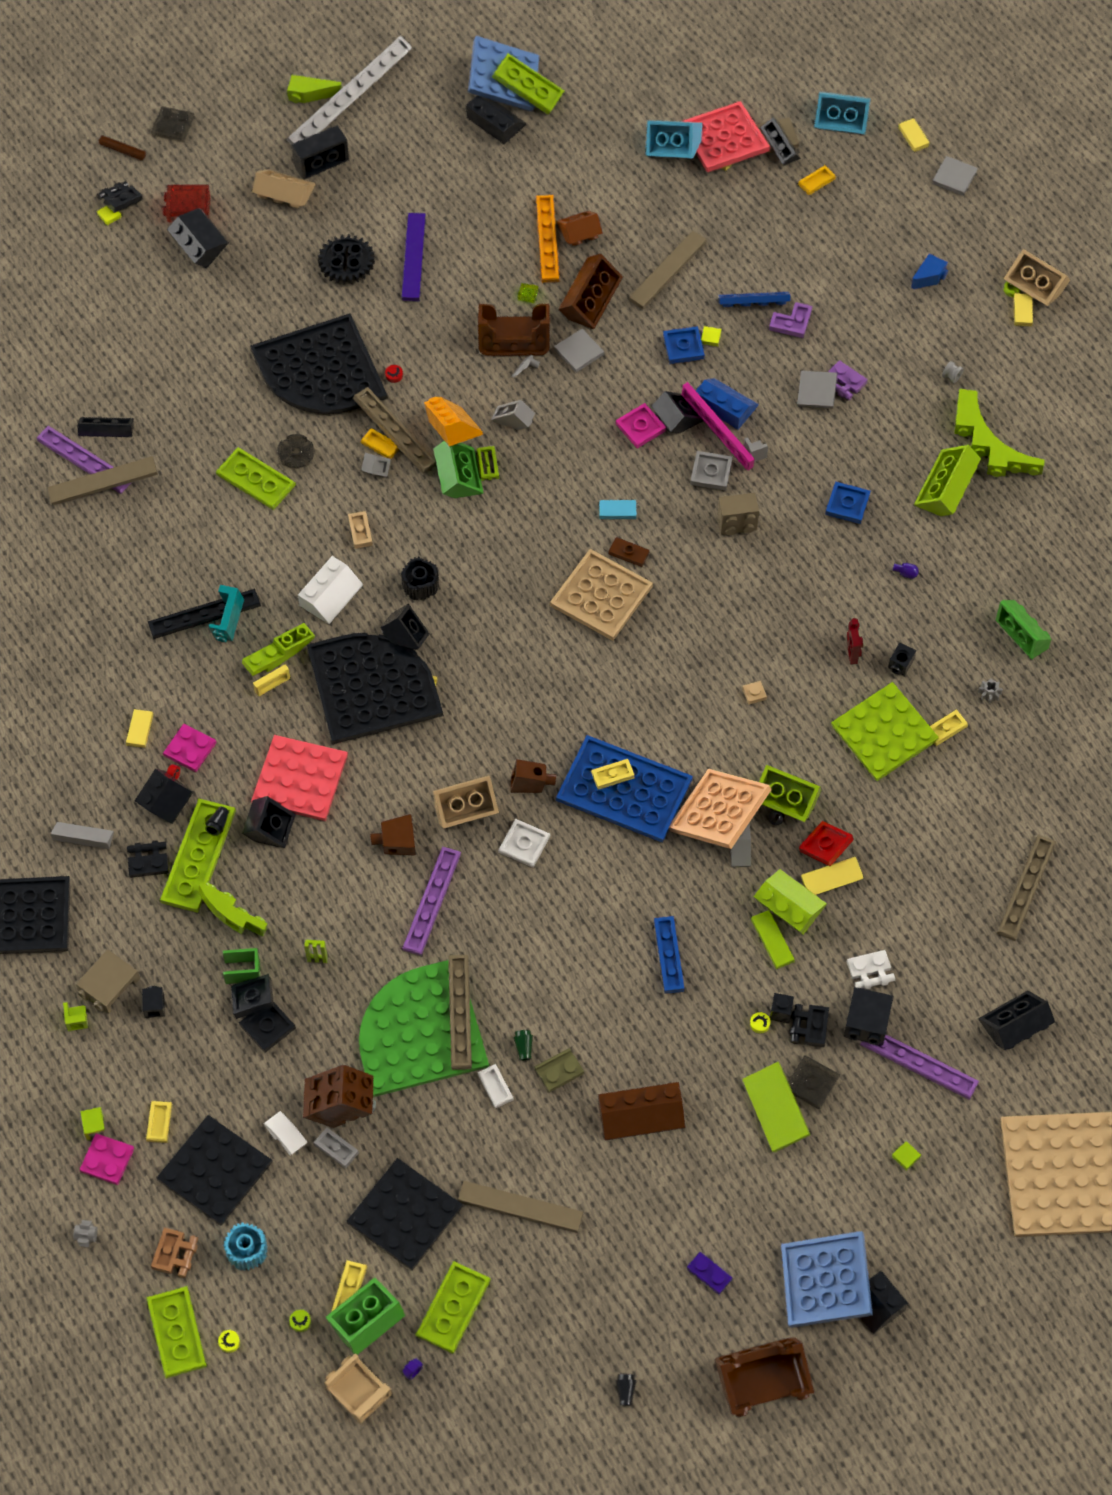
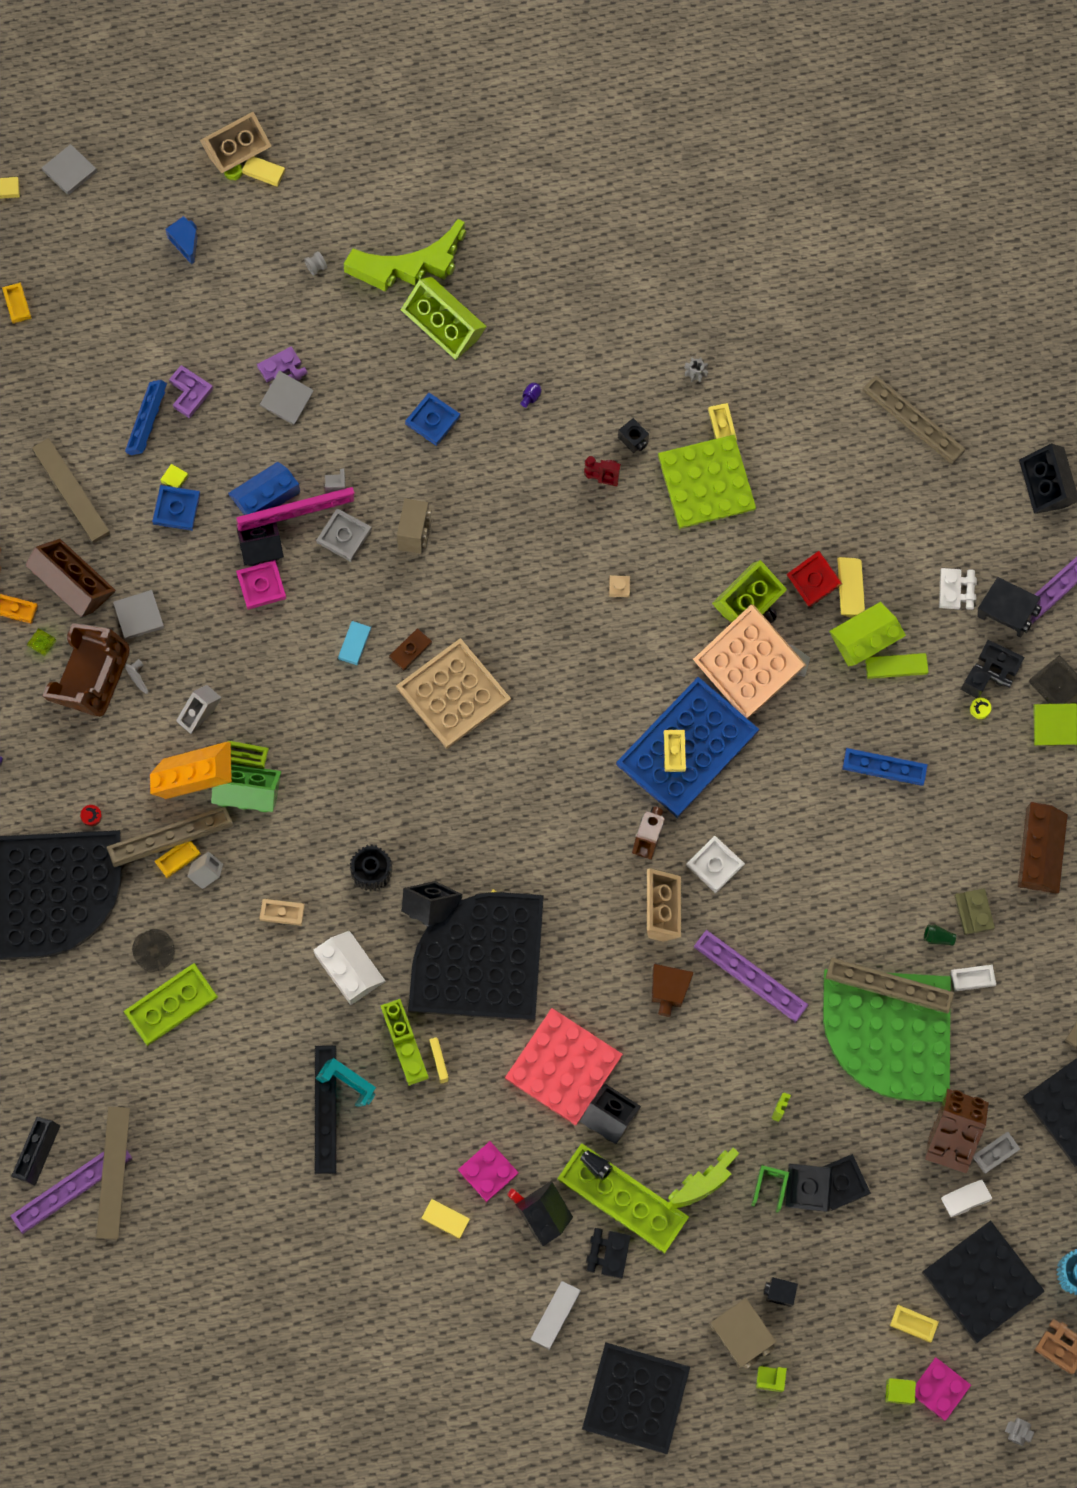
camera: 75 degrees left, 10 degrees up
(1022, 628) = (640, 313): bright green slope -> none

